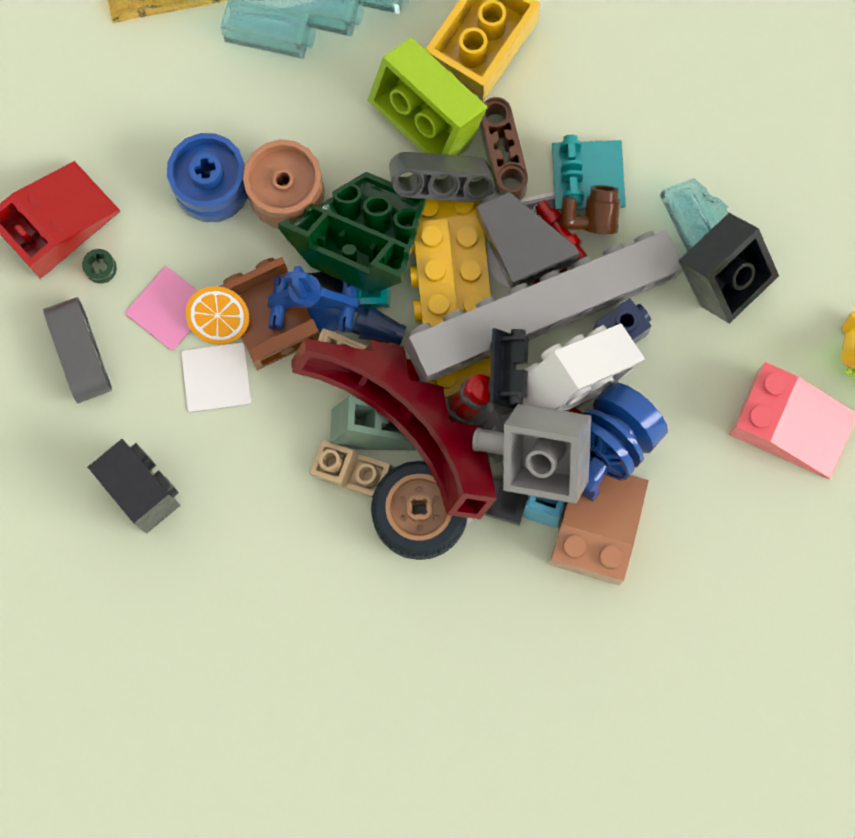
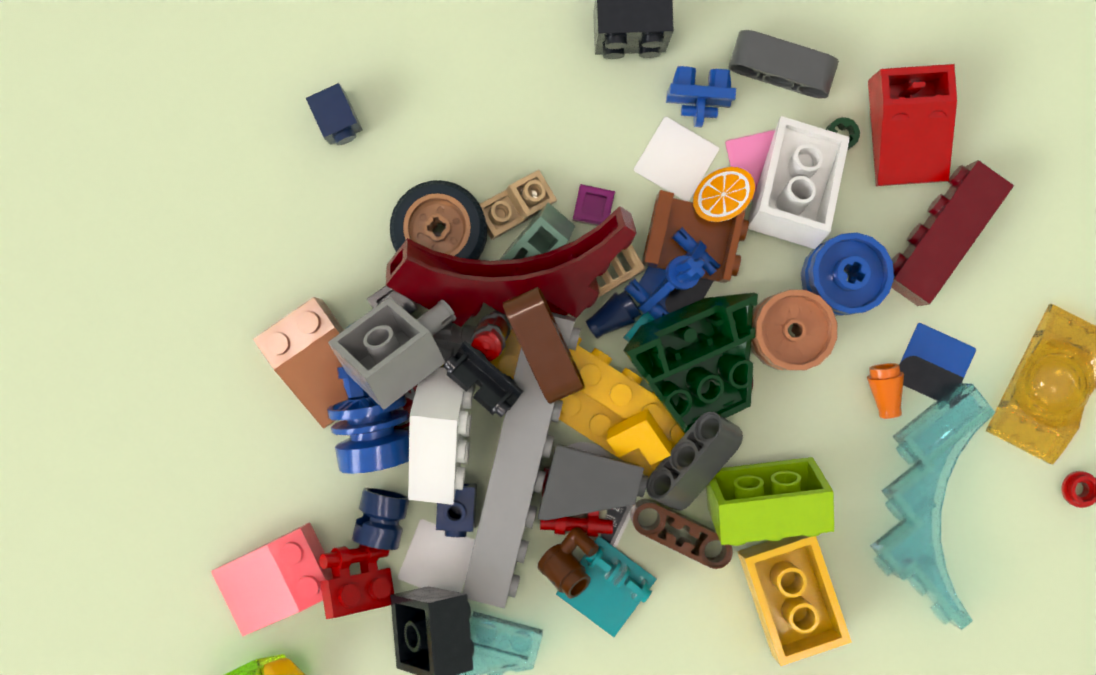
camera: 120 degrees right, 10 degrees up
(115, 130) = (948, 232): none -> dark red brick
(156, 409) = (716, 94): none -> blue hips
(163, 265) = (799, 183): none -> white slope
(223, 70) = (934, 362): none -> sticker
(270, 87) = (887, 389): none -> orange cone
(304, 410) = (593, 205): none -> magenta tile
(394, 667) = (334, 115): none -> dark blue brick
(445, 341) = (543, 345): none -> reddish brown beam
(452, 231) = (640, 432): none -> yellow piece
(674, 315) = (436, 559): none -> white sticker
(680, 376) = (380, 519): none -> dark blue wheel
(747, 347) = (358, 592): none -> red plate

